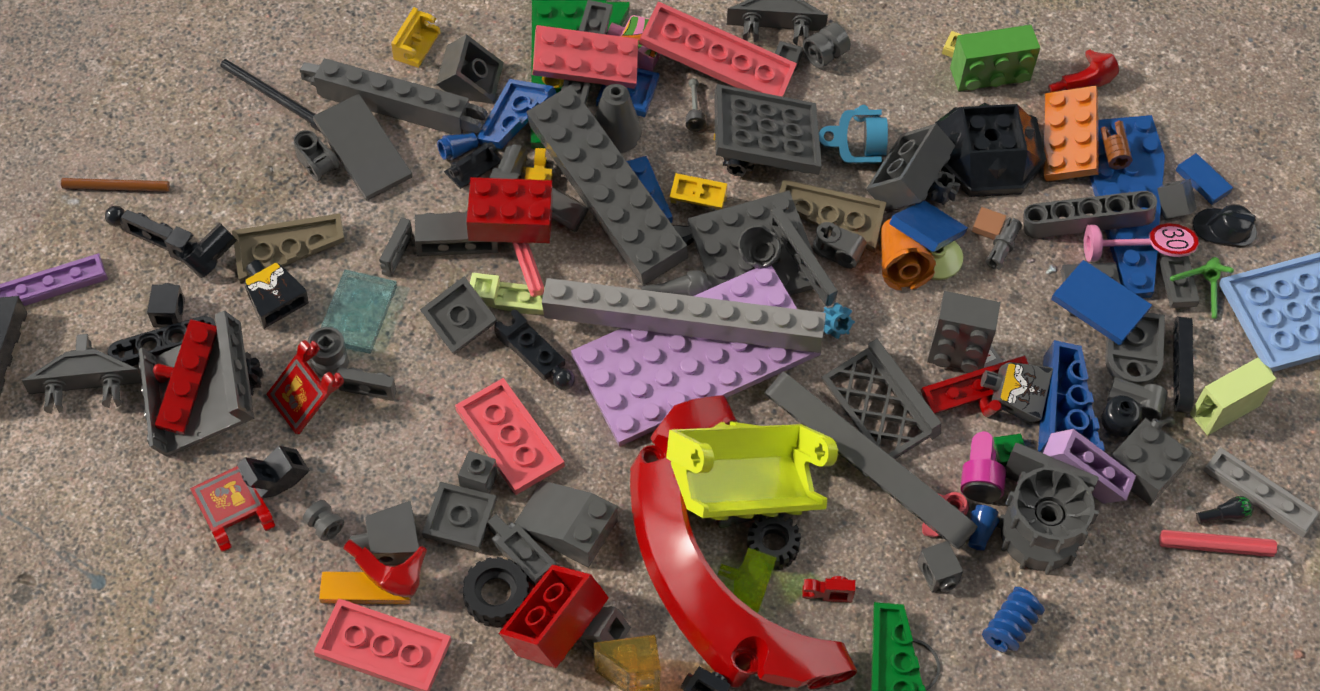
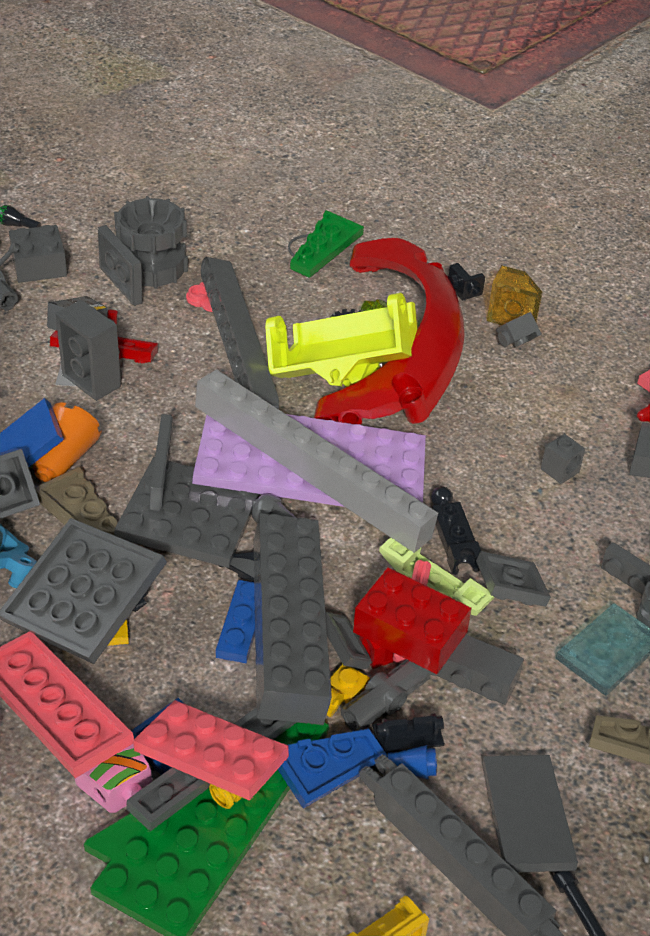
camera: 150 degrees left, 15 degrees down
(315, 158) = (591, 827): dark grey piece -> none
(396, 247) = (542, 680): dark grey tile -> none
(459, 516) = (600, 444): dark grey plate -> none
(470, 71) = (348, 845): dark grey slope -> none
(494, 569) = (583, 403): black tyre -> none
(509, 436) = (517, 480): coral plate -> none
(520, 548) = (553, 405): dark grey hinge -> none
(554, 615) = (555, 341): red brick -> none
(568, 520) = (503, 404): dark grey slope -> none
(618, 117) = (223, 684): dark grey cone -> none
(695, 114) = (131, 663): dark grey hinge -> none
(698, 191) = (197, 582): yellow hinge -> none
(759, 246) = (190, 487): dark grey hair -> none
(832, 590) = (330, 289): red plate -> none
(837, 320) = (179, 427): dark azure gear -> none
(840, 246) = (109, 483): dark grey piece -> none
(897, 384) = (167, 360): dark grey fence -> none
(940, 567) = (246, 268): dark grey brick -> none
(982, 476) = (163, 291): dark pink piece -> none
(986, 520) = (187, 277): blue cone -> none
(1005, 445) = (125, 306): green plate -> none
(1013, 620) = (224, 224): blue piece -> none
(1068, 396) = (69, 281): blue wedge -> none
(1076, 450) = (91, 251): lavender brick -> none
(1121, 416) = (24, 279): black head -> none
(1218, 543) = (43, 210): coral axle -> none

